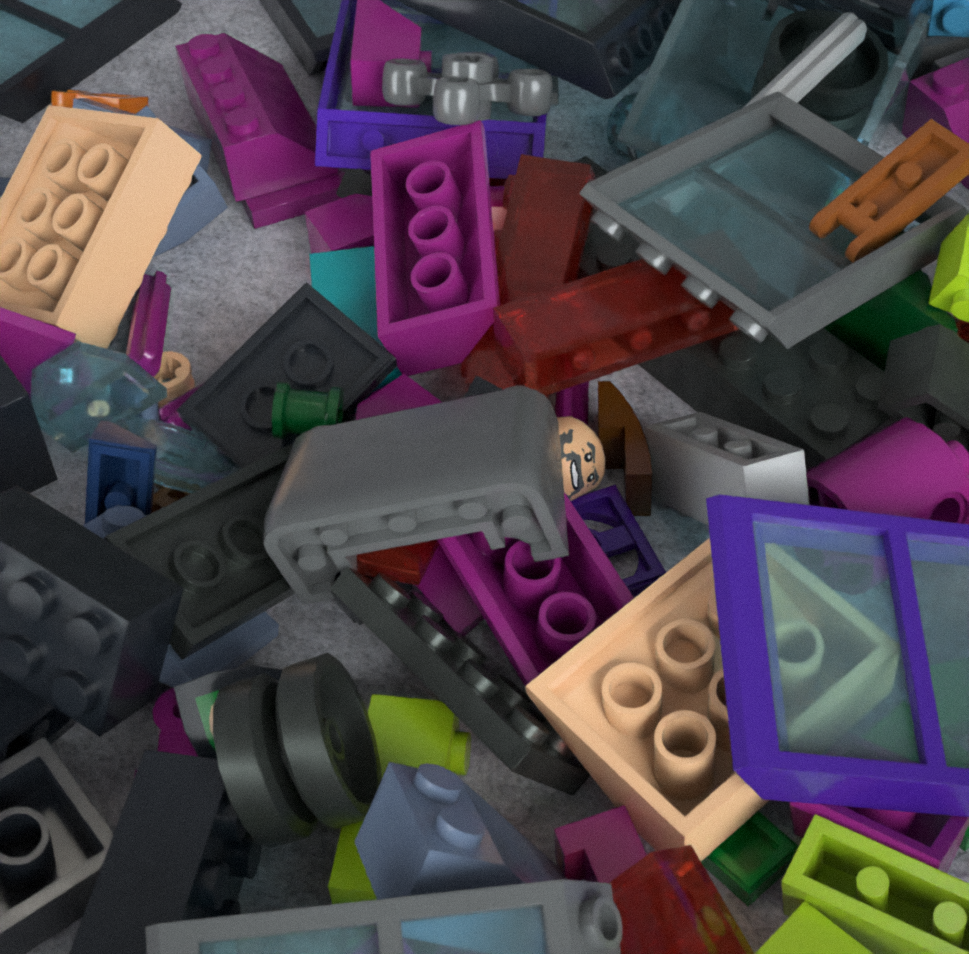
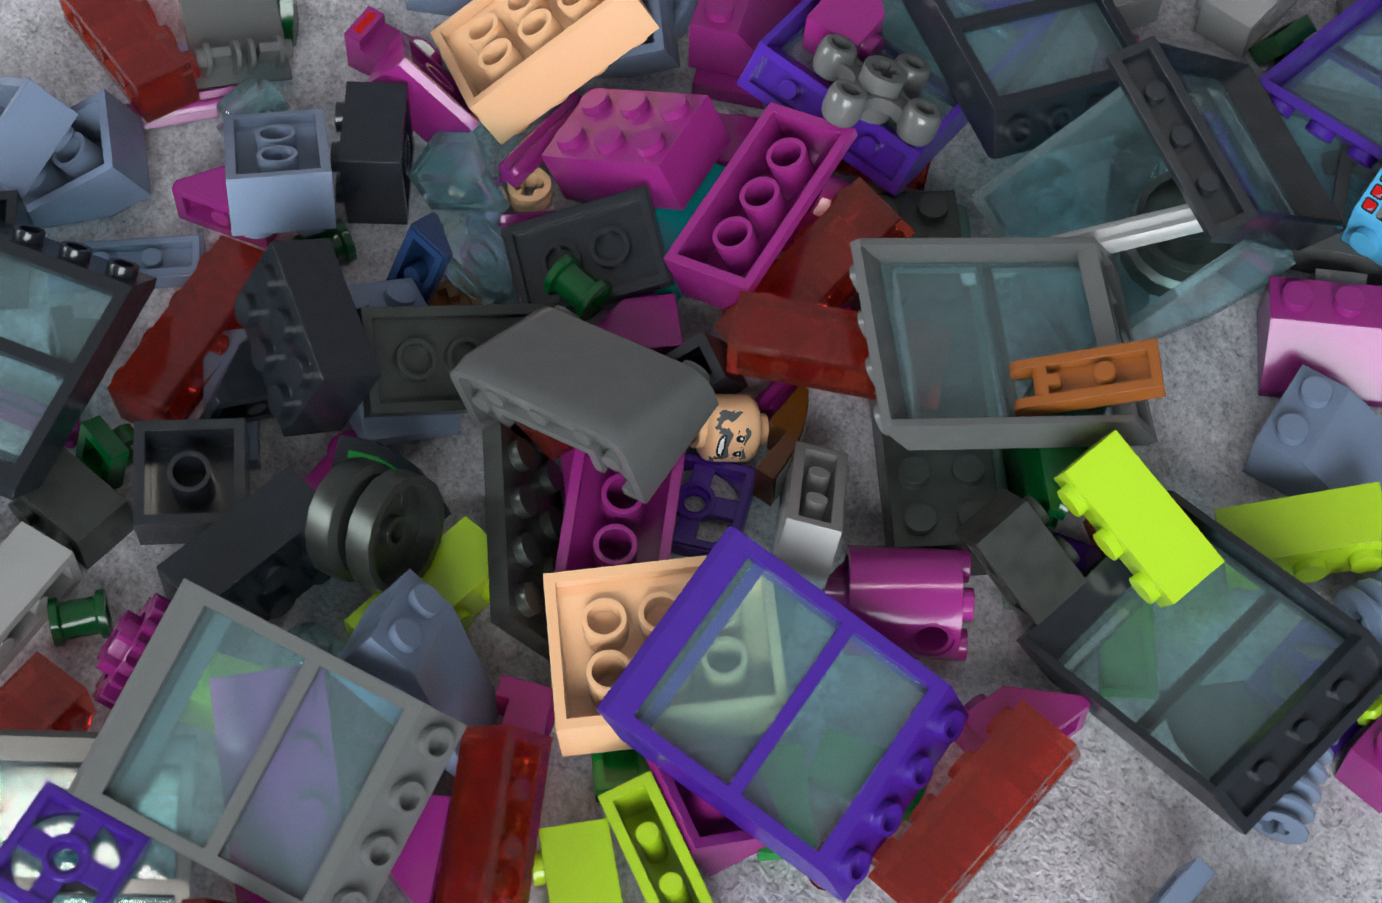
camera: 30 degrees right, 10 degrees up
(249, 265) = (636, 140): none -> magenta brick

